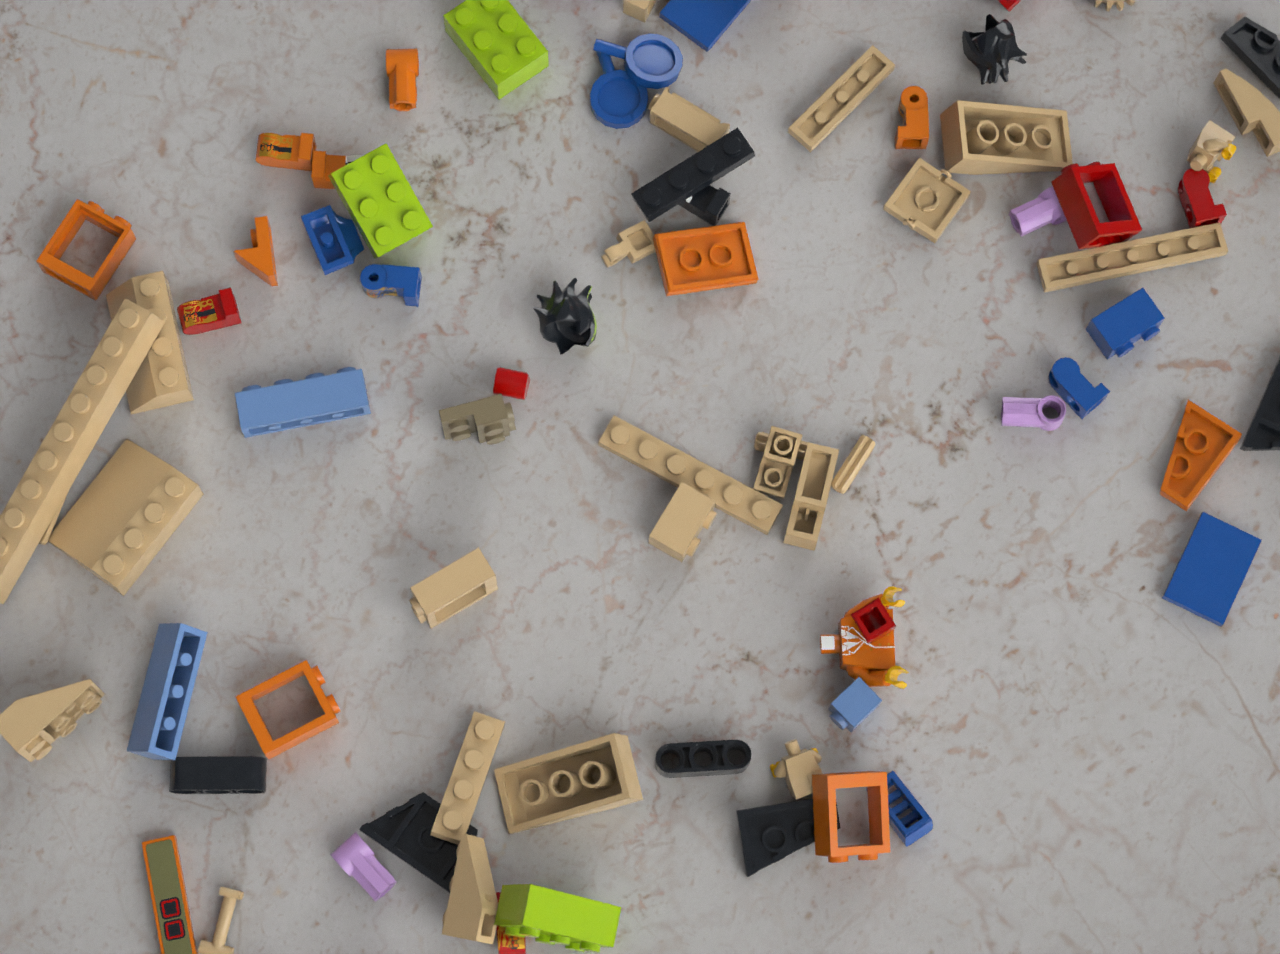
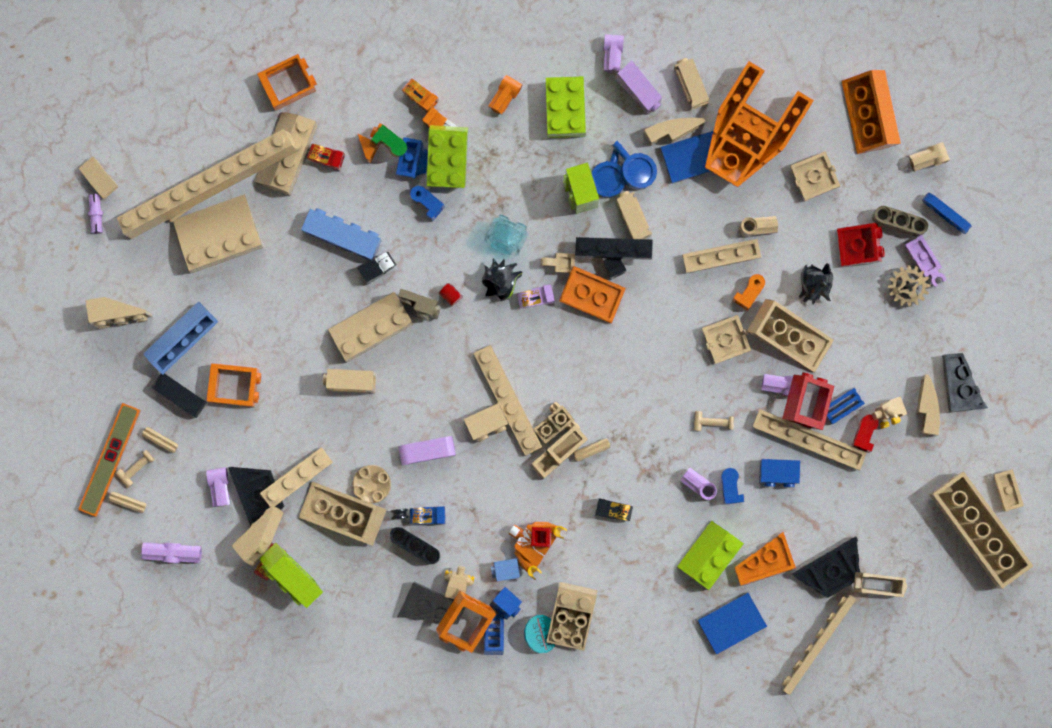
camera: 40 degrees right, 10 degrees up
(232, 858) = (160, 439): none -> tan axle
(286, 228) = (390, 140): none -> green leg
(383, 415) = (377, 267): none -> black leg
(430, 500) = (370, 327): none -> tan slope
(534, 253) = (506, 235): none -> clear light blue brick
(580, 713) = (371, 483): none -> tan dish
(594, 122) = (581, 188): none -> lime brick
(626, 616) = (426, 450): none -> lavender beam
(632, 310) = (536, 297): none -> lavender leg
(650, 729) = (399, 514): none -> black bush
(692, 704) = (428, 515): none -> blue leg
(862, 28) = (760, 226): none -> tan piece
(888, 751) = (506, 604): none -> blue brick
(940, 524) = (613, 510): none -> black leg
(966, 760) = (536, 634): none -> teal piece
(970, 330) = (699, 421): none -> tan piece
(991, 706) = (572, 616): none -> tan slope
(1116, 496) = (710, 555): none -> lime slope
(1151, 164) = (856, 397): none -> blue tile

